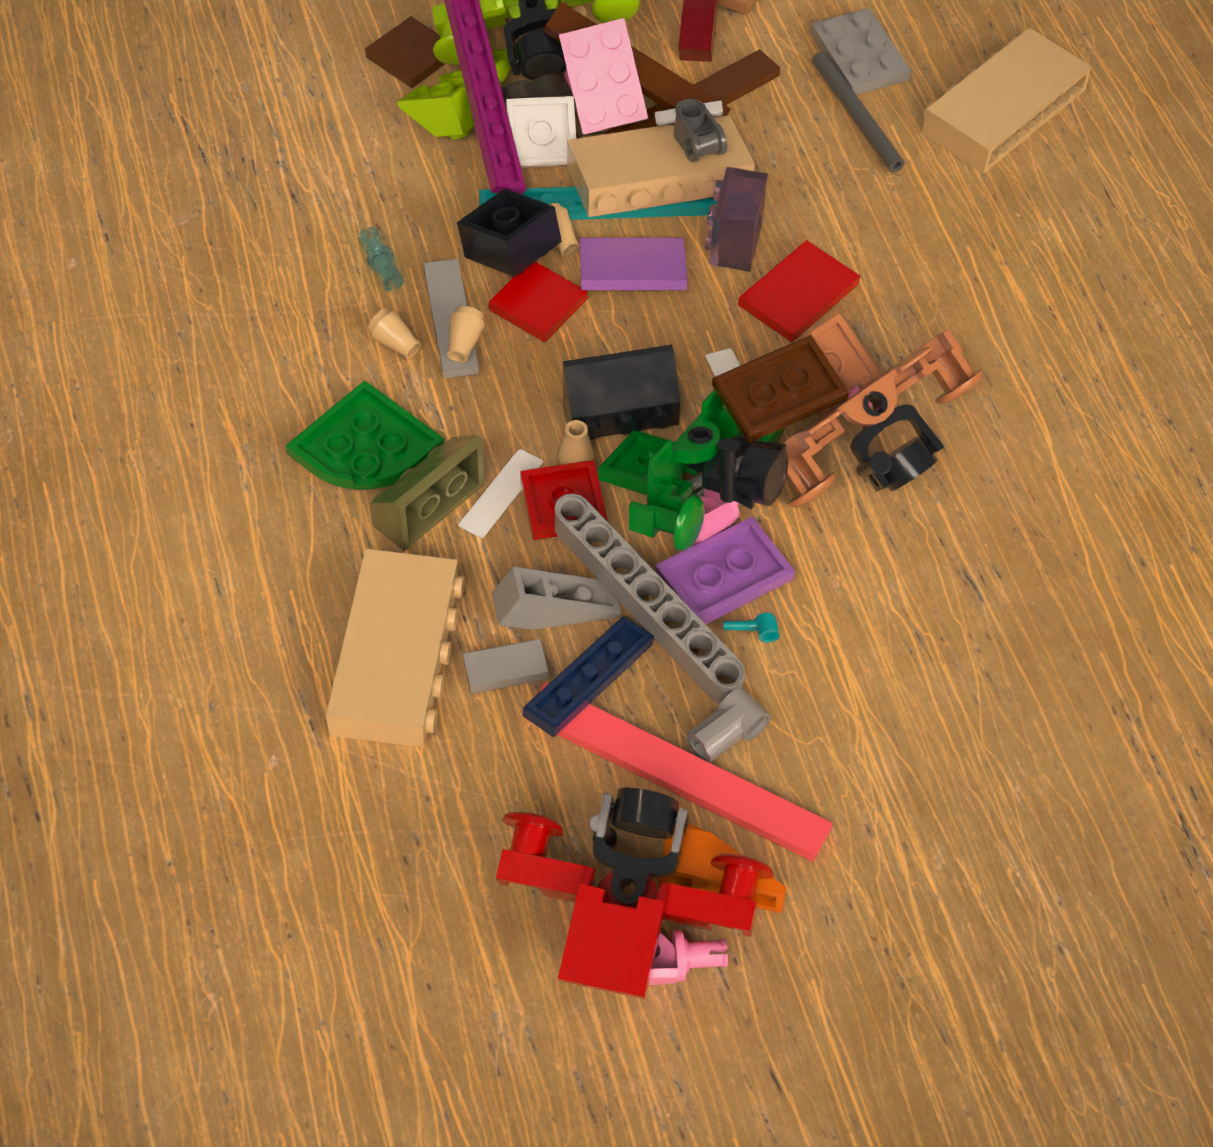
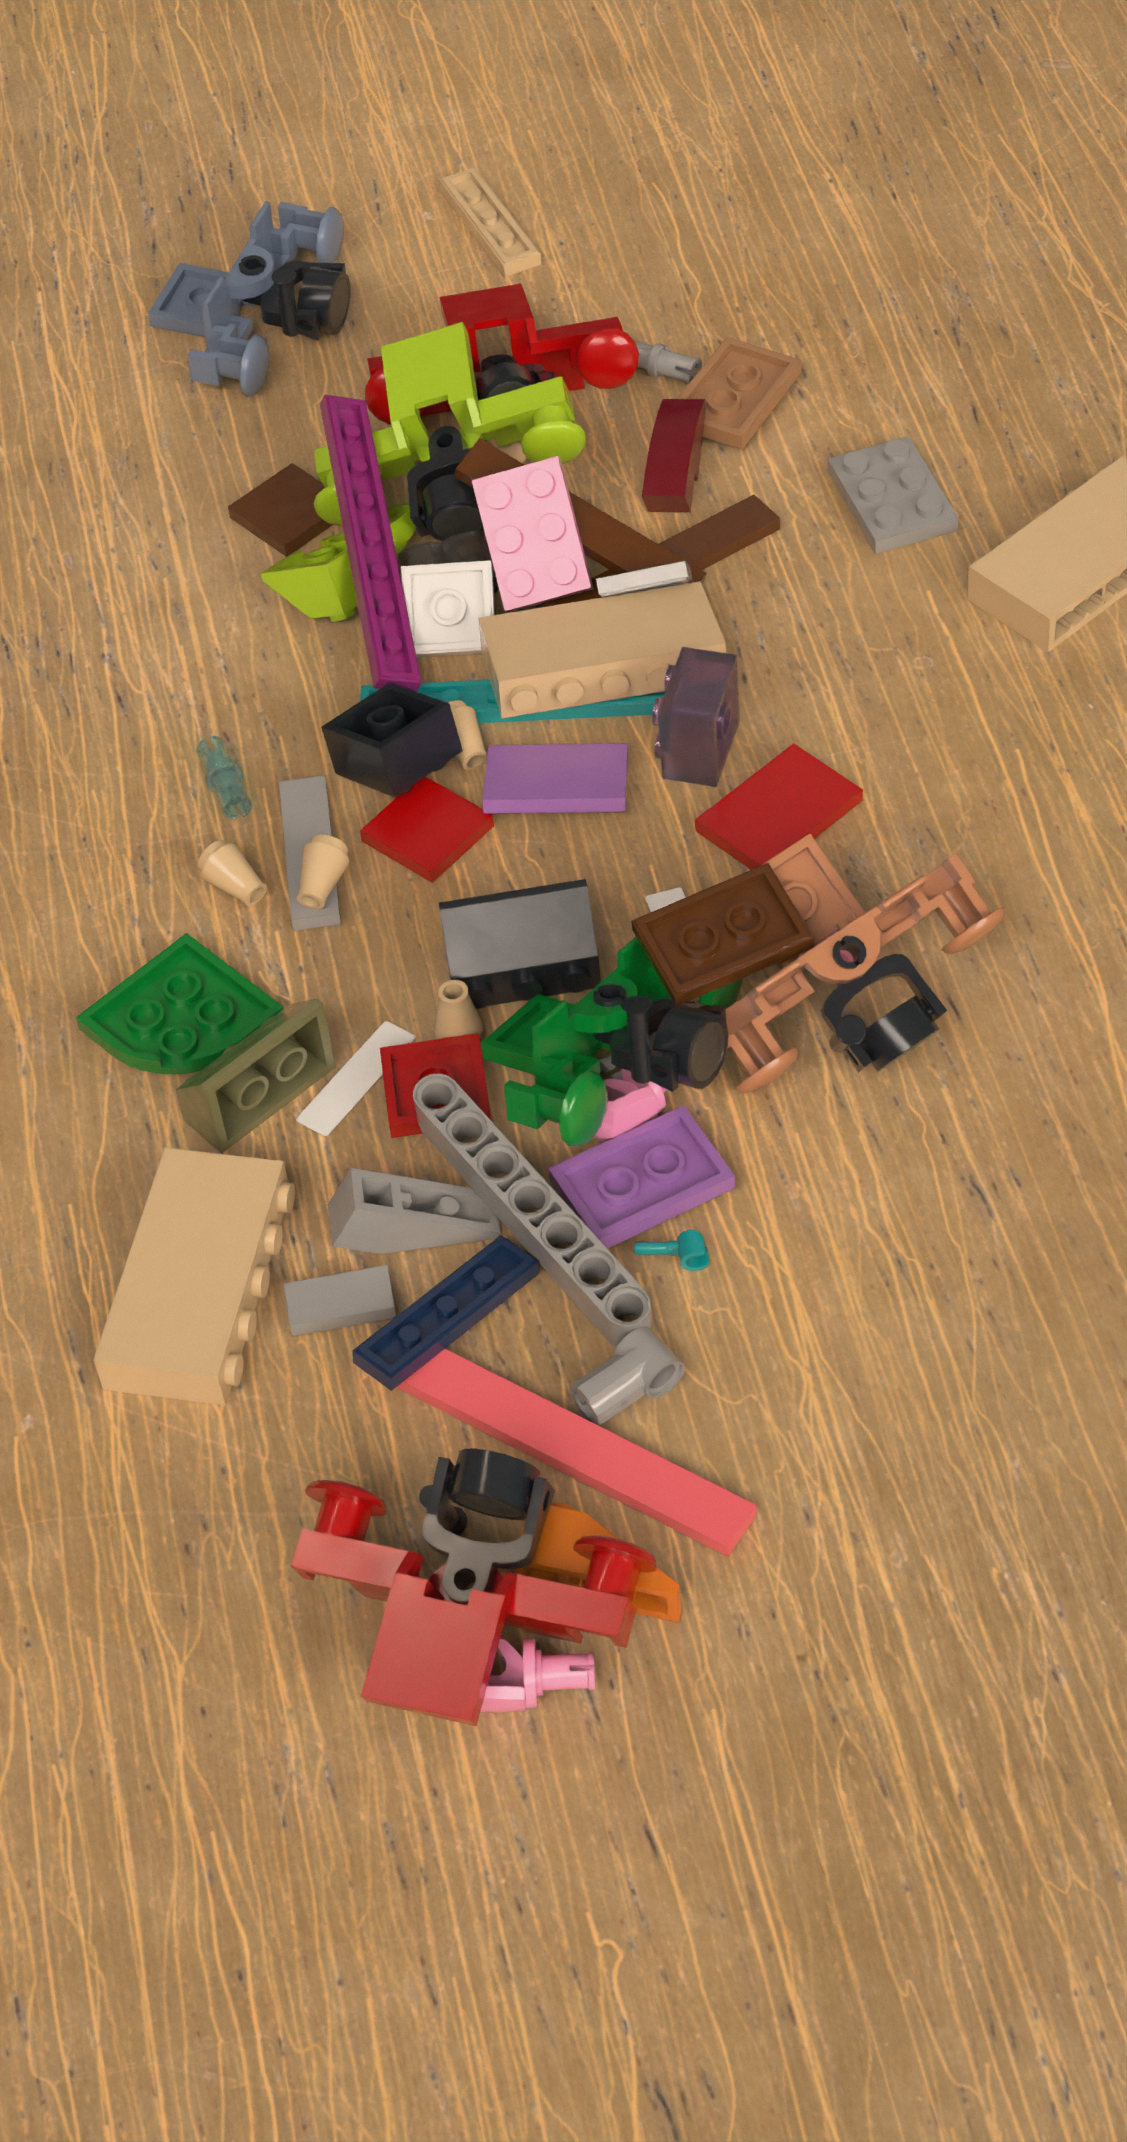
camera: 10 degrees right, 5 degrees down
(697, 130) = (649, 600): dark grey piece -> none
(858, 112) = (881, 574): dark grey piece -> none

